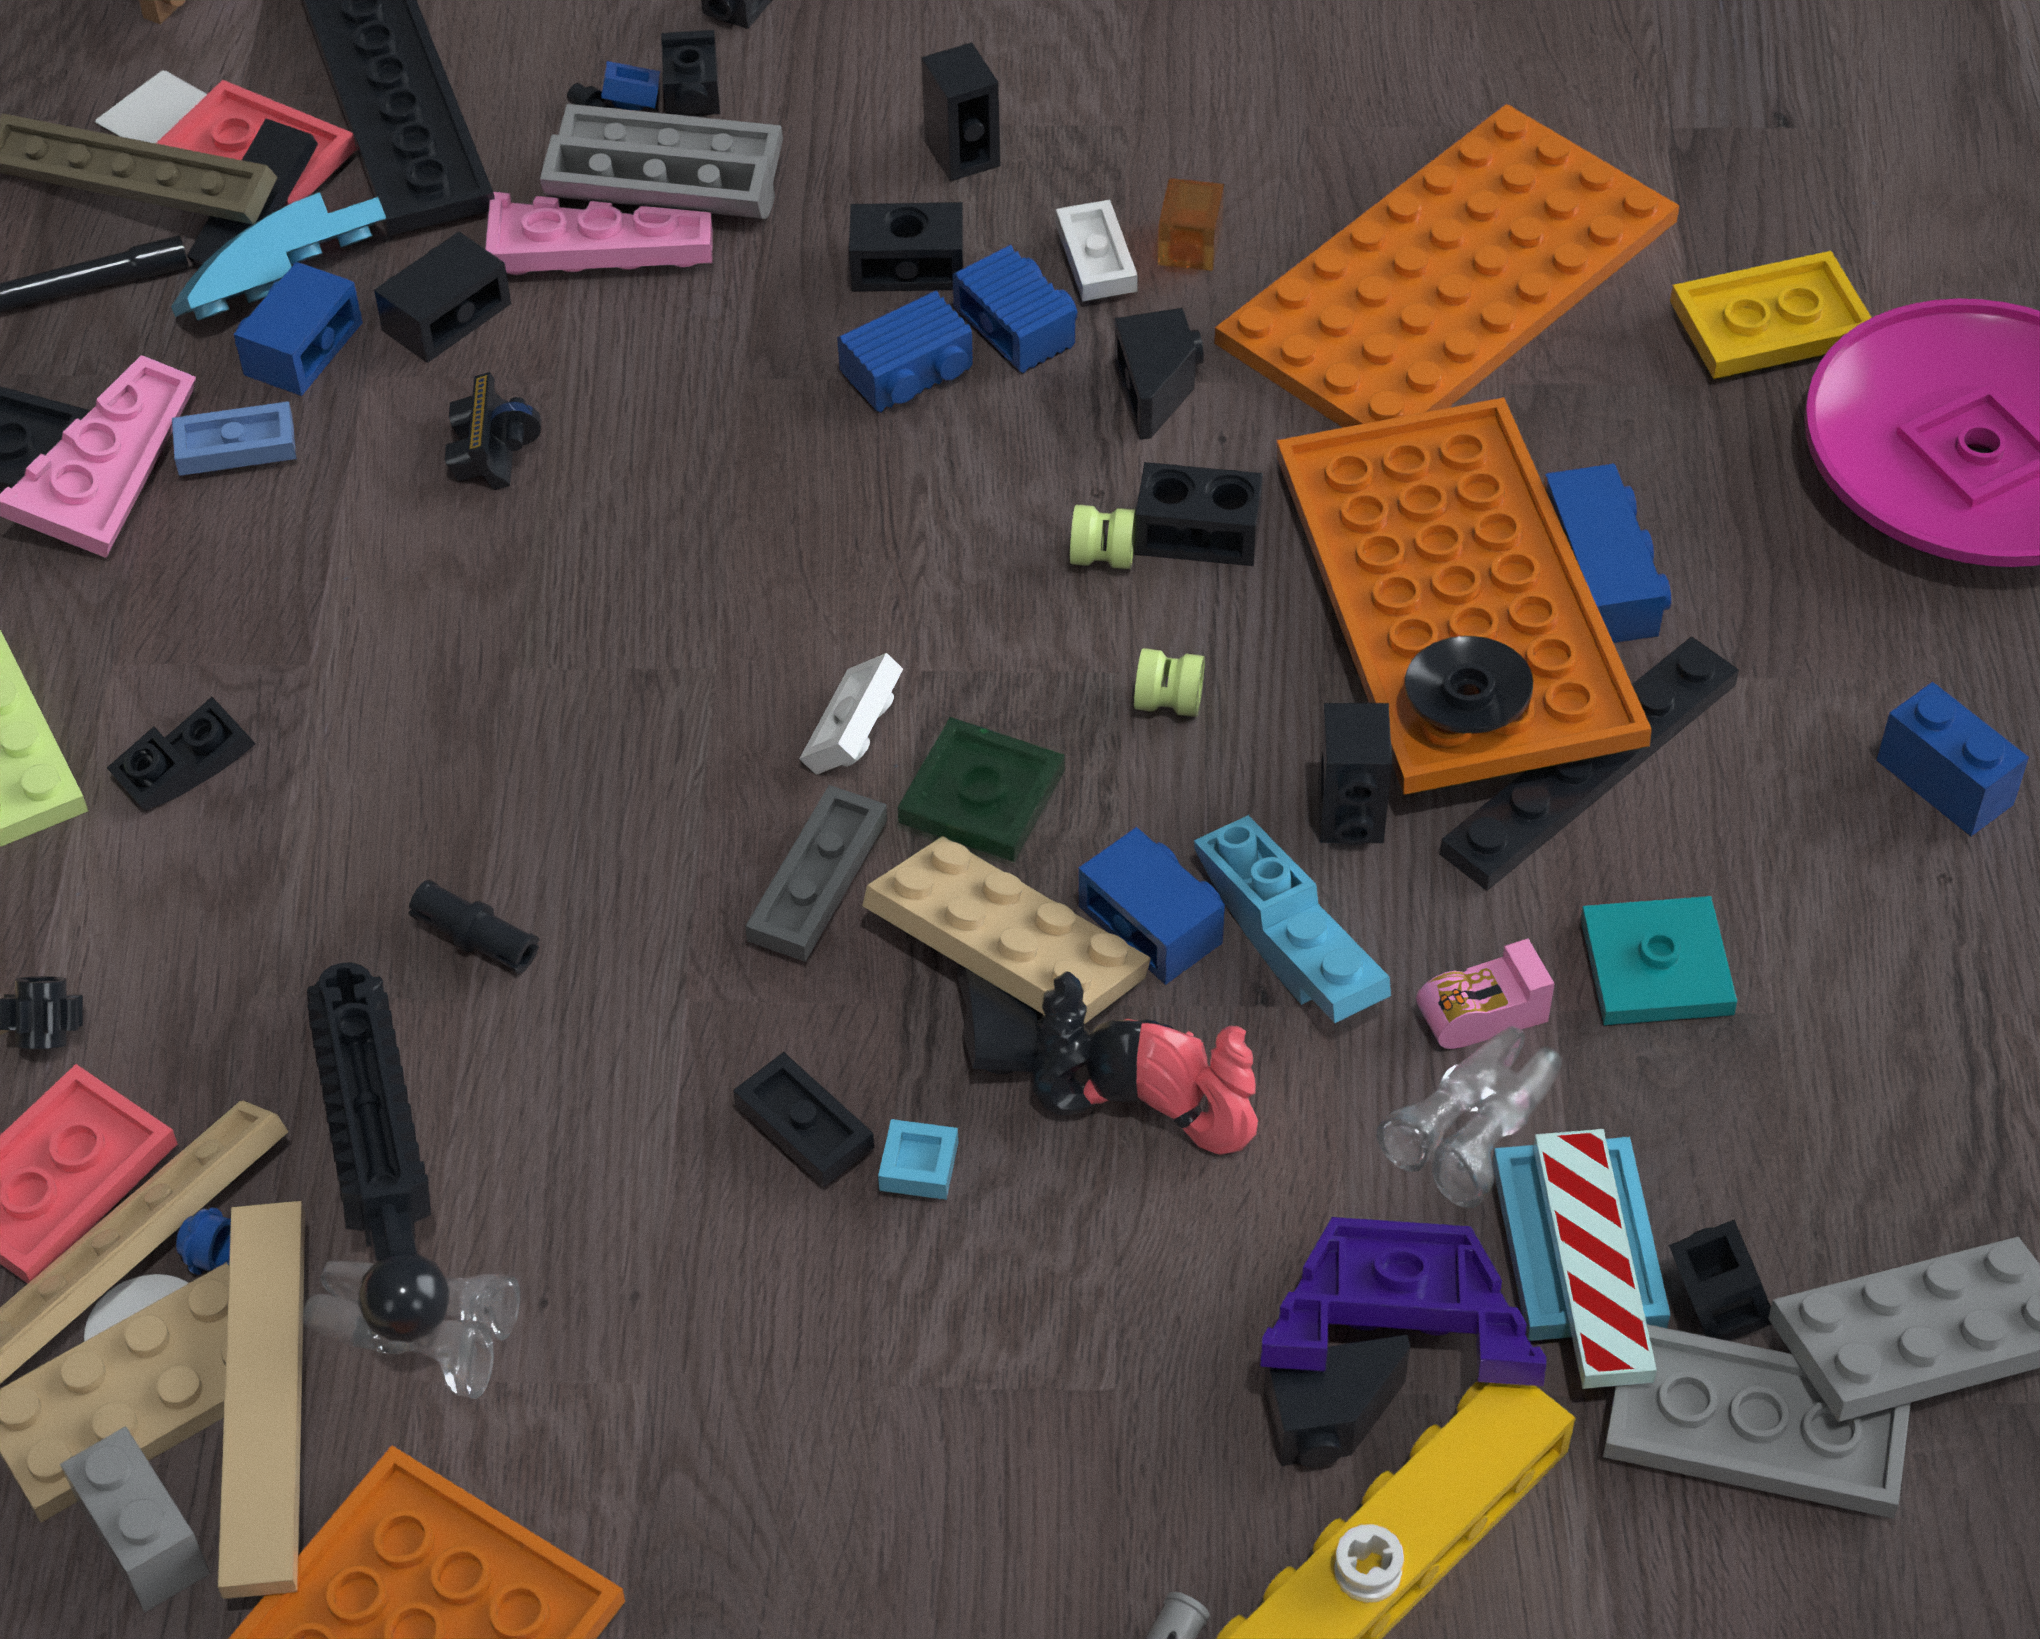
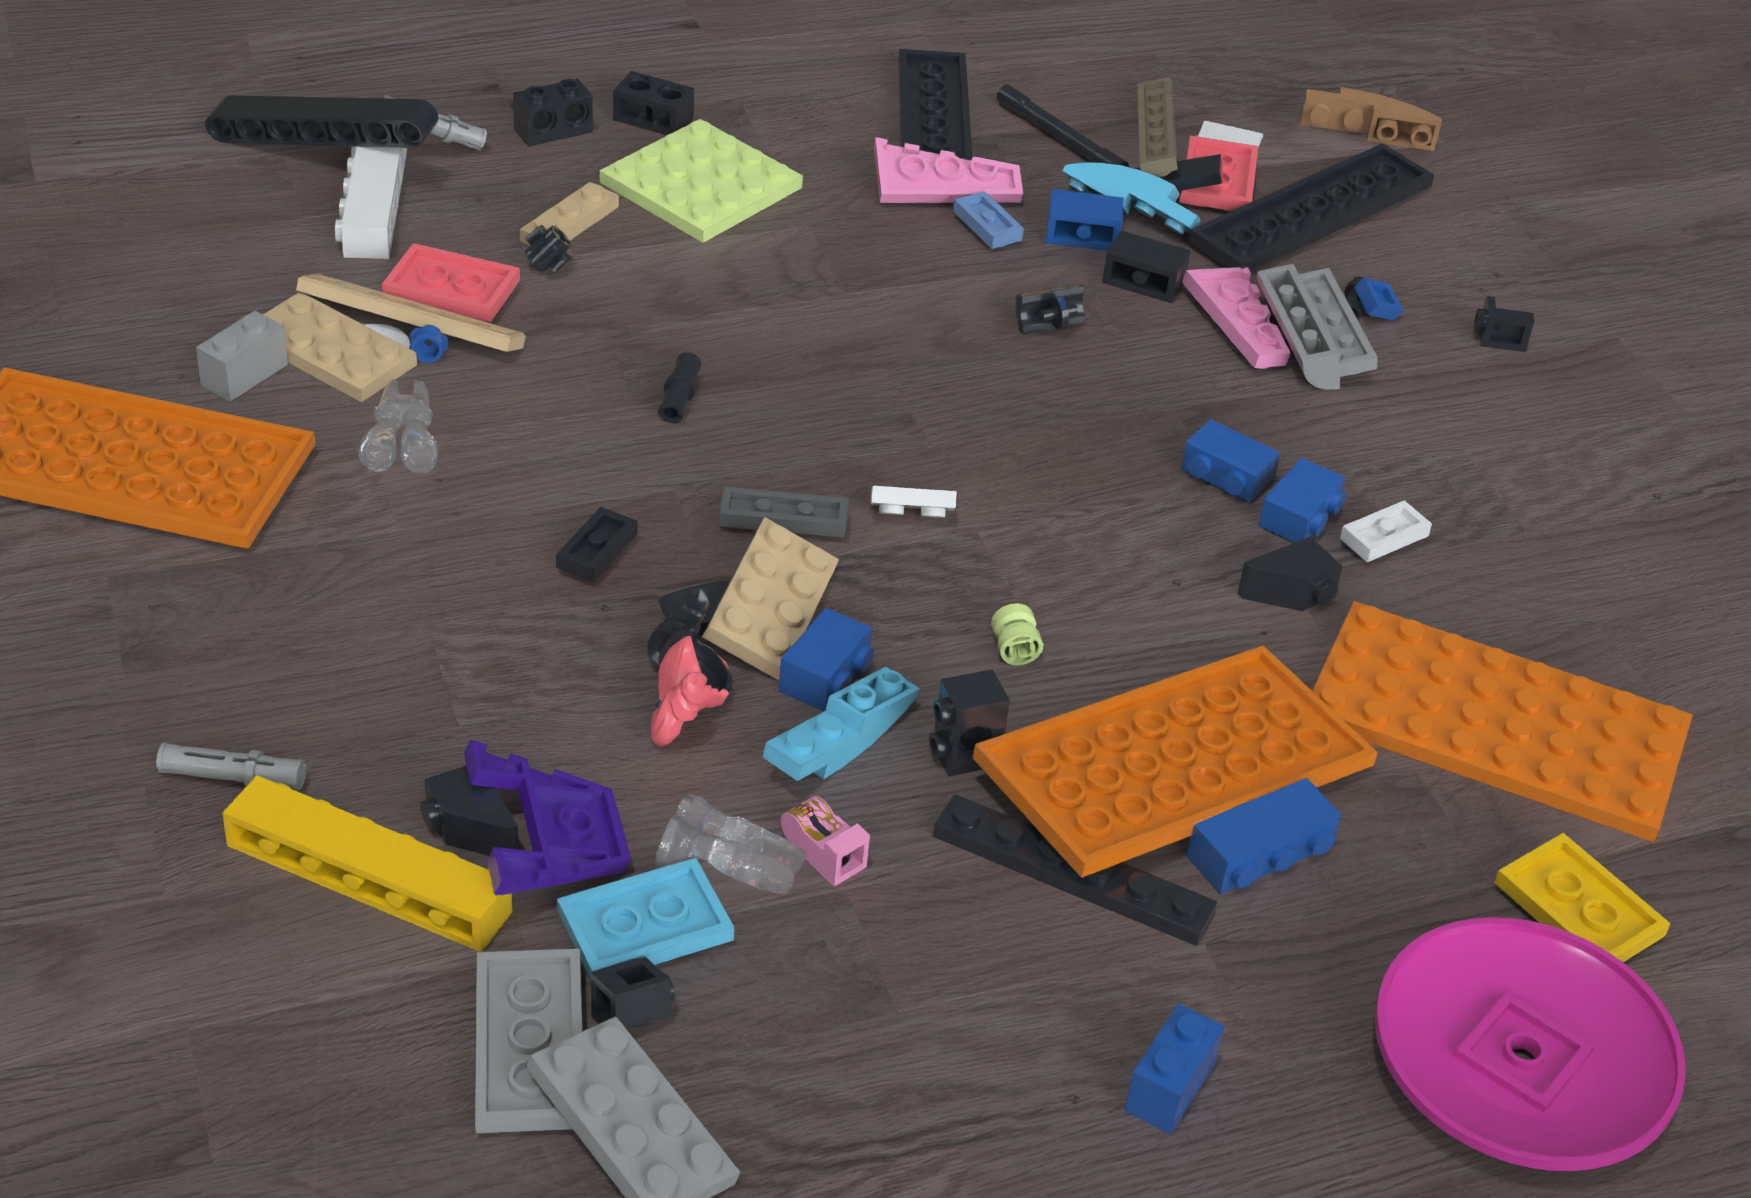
camera: 65 degrees right, 10 degrees down
(170, 766) = (746, 259): black slope -> none
(262, 1402) = (324, 375): tan tile -> none
(375, 1150) = (497, 370): black gear -> none
(690, 73) = (1408, 322): black brick -> none
(905, 246) = (1324, 437): black brick -> none
(918, 1159) = (586, 597): medium azure plate -> none
(961, 111) = (1449, 430): black brick -> none
(981, 789) = (885, 568): clear green plate -> none
(1089, 536) = (1125, 580): yellowish green wheel -> none
(1190, 224) = (1439, 569): clear orange brick -> none
(1198, 514) = (1174, 621): black brick -> none
(1358, 1544) = (334, 815): white bush -> none
(1468, 684) = (1060, 749): black dish -> none
(1594, 1259) = (617, 915): light aqua tile -> none
(1658, 960) = (908, 932): teal plate -> none

